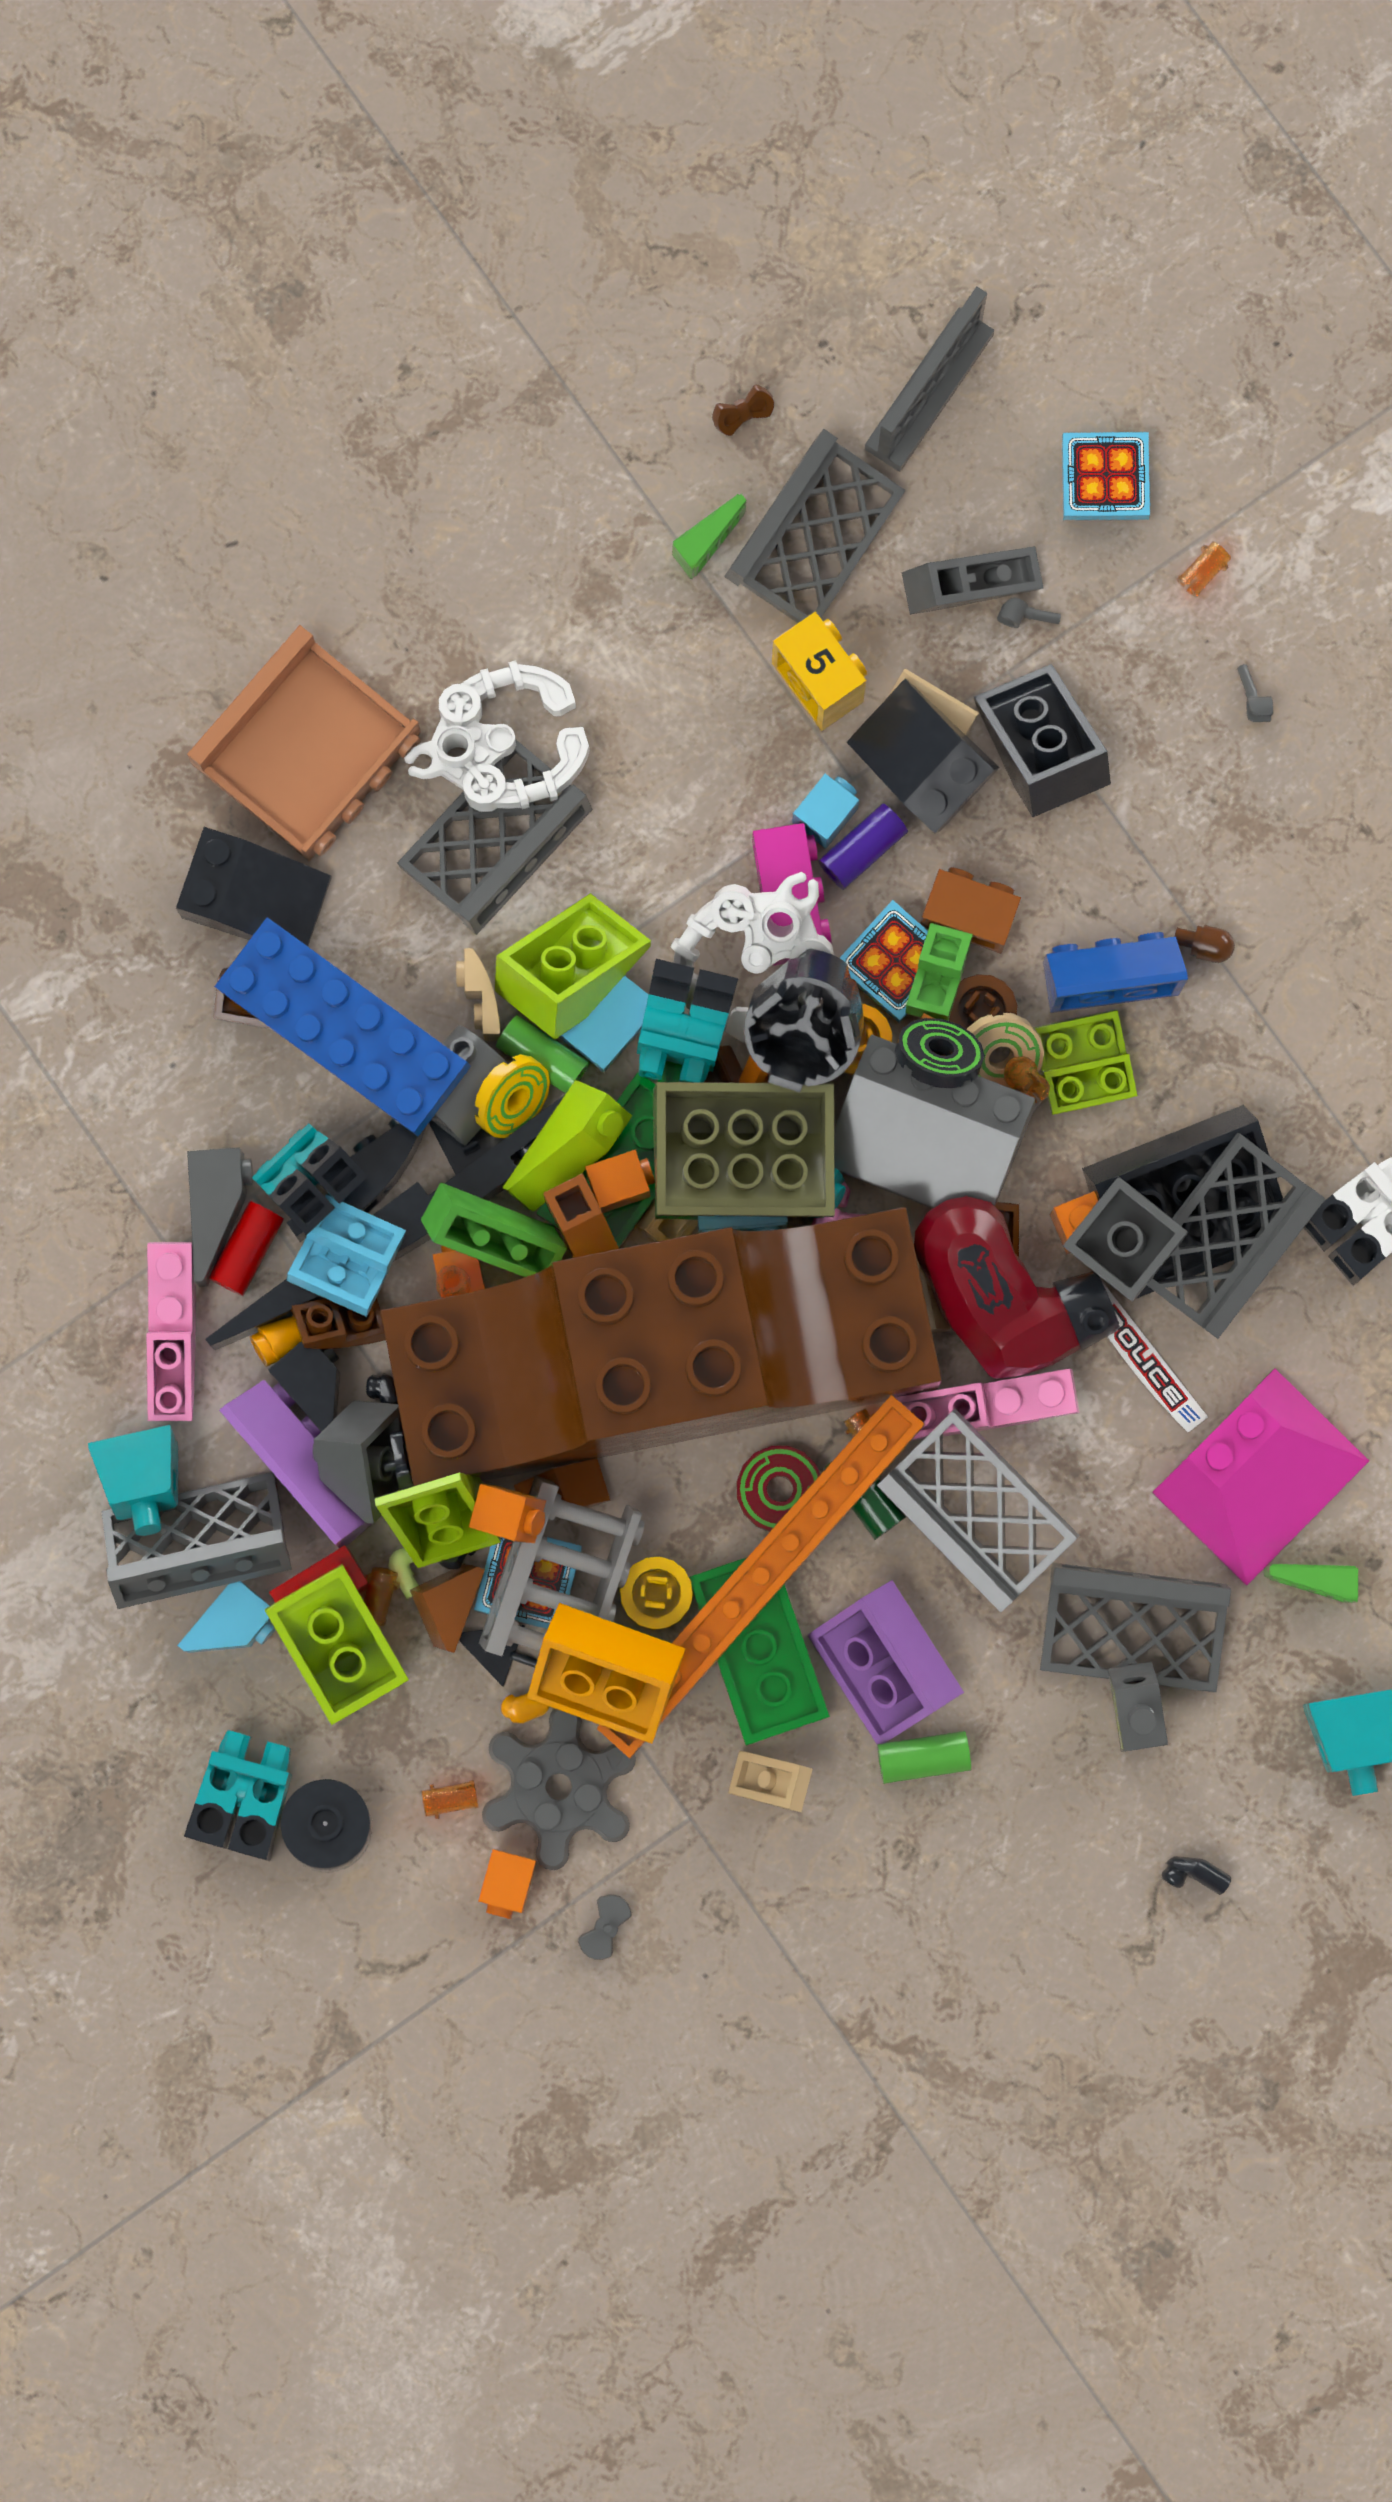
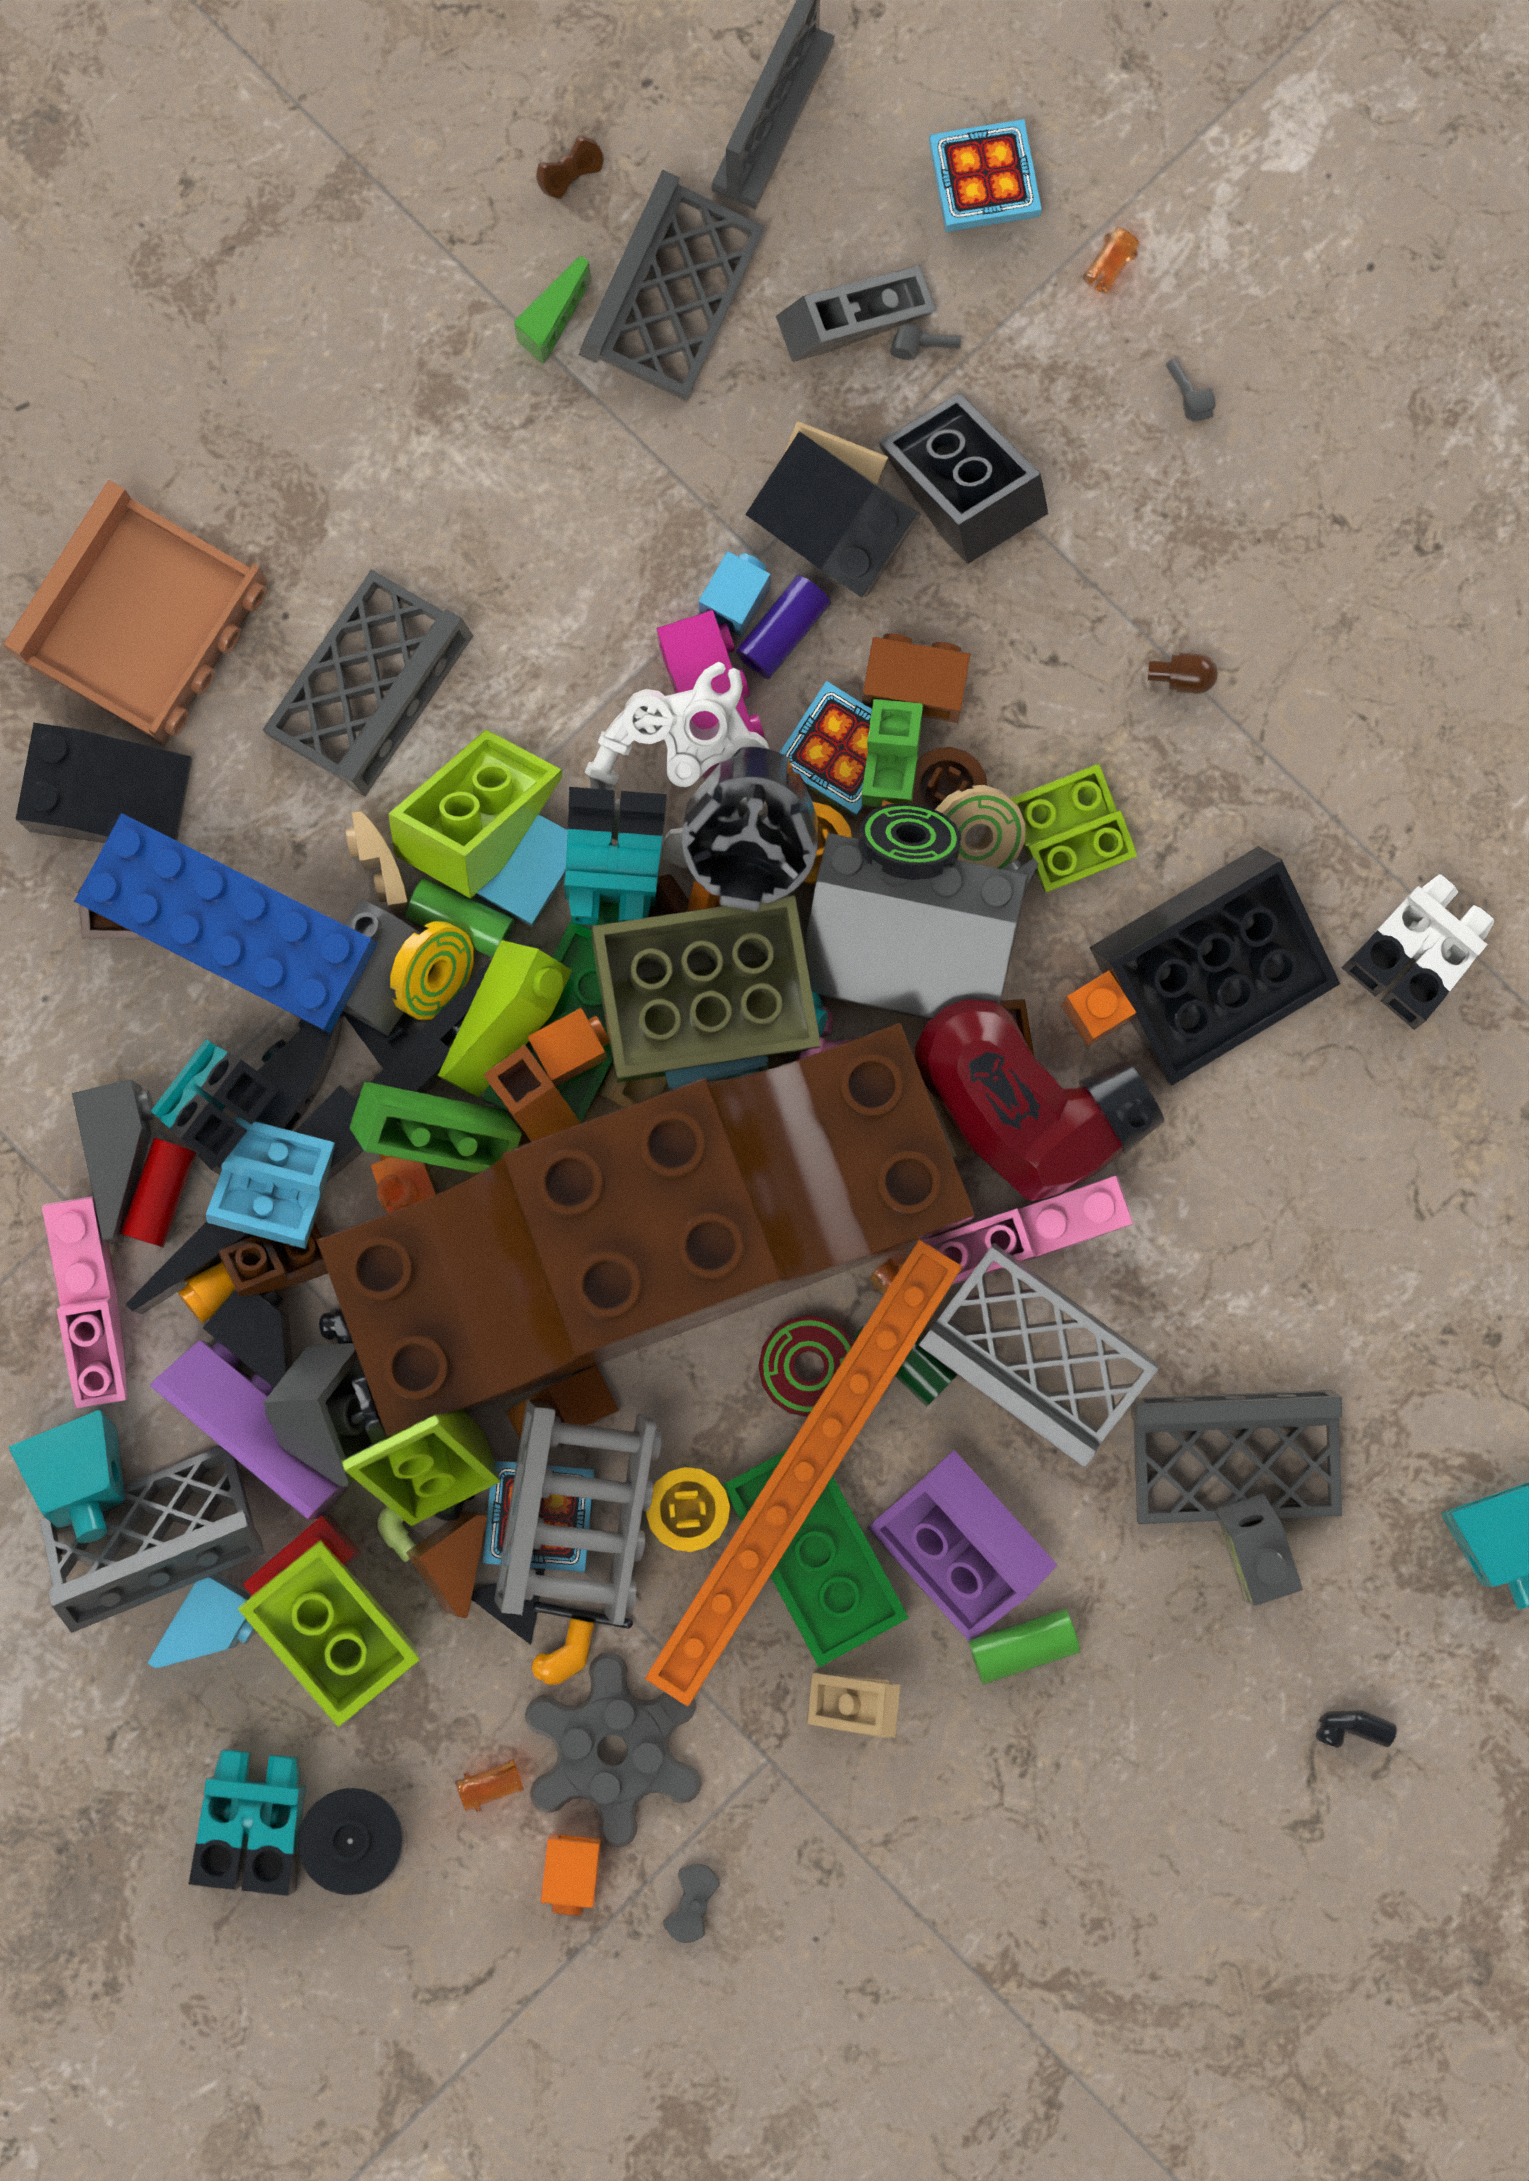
camera: 10 degrees left, 0 degrees up
(379, 1592) = (371, 1561): clear orange pin -> none
(487, 744) = (344, 580): white piece -> none
(508, 1513) = (501, 1451): orange brick -> none
(605, 1673) = (643, 1614): light orange slope -> none
(819, 670) = (702, 436): yellow brick -> none
(1022, 1075) = (1005, 852): clear orange pin -> none
(1114, 972) = (1089, 722): blue slope -> none
(1125, 1239) = (1157, 1018): dark grey brick -> none
(1153, 1370) = (1210, 1164): sticker -> none
(1260, 1477) = (1349, 1262): dark pink slope -> none
(1262, 1249) = (1306, 1015): dark grey fence -> none
(1325, 1580) = (1448, 1368): bright green slope -> none

